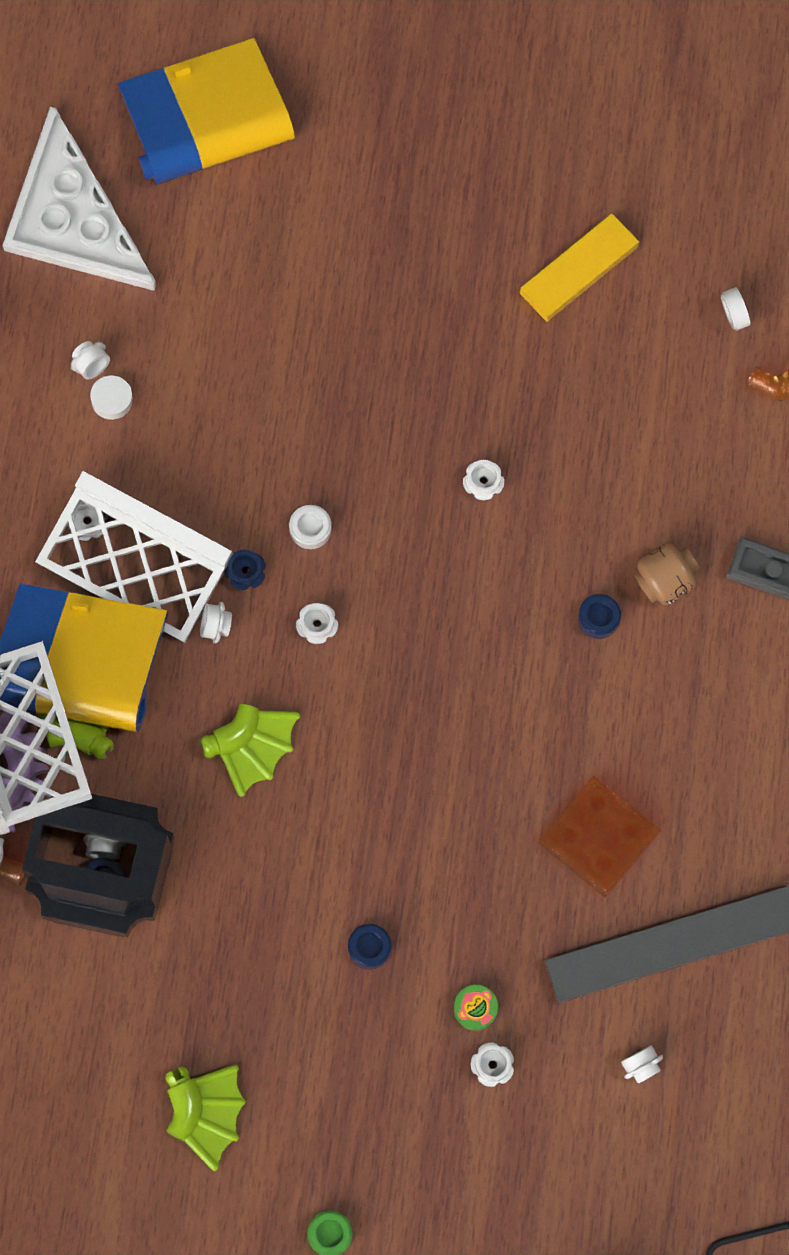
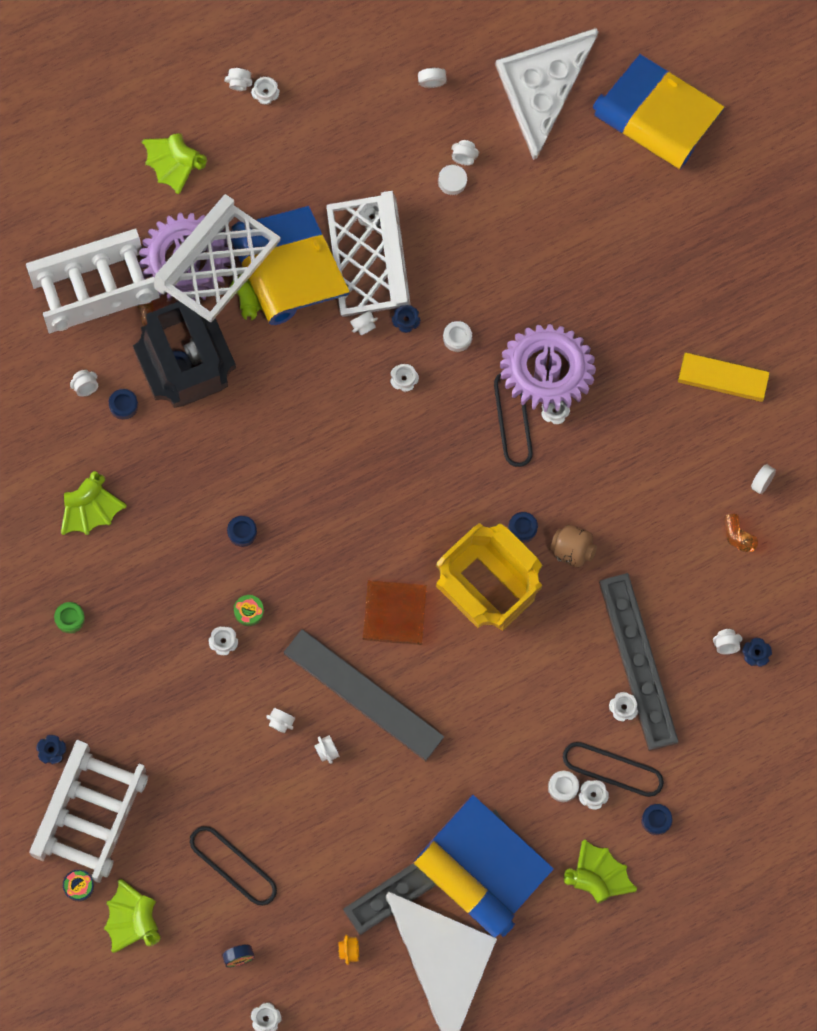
camera: 50 degrees right, 0 degrees up
(42, 1007) = (84, 383): none -> white plate
(103, 979) = (123, 404): none -> dark blue tile
(251, 744) = (309, 390): lime arm -> none
(441, 472) = (537, 387): none -> lavender gear
(469, 560) = (501, 423): none -> black piece
(640, 660) = (505, 558): none -> yellow piece
(715, 1033) = (326, 749): none -> white plate

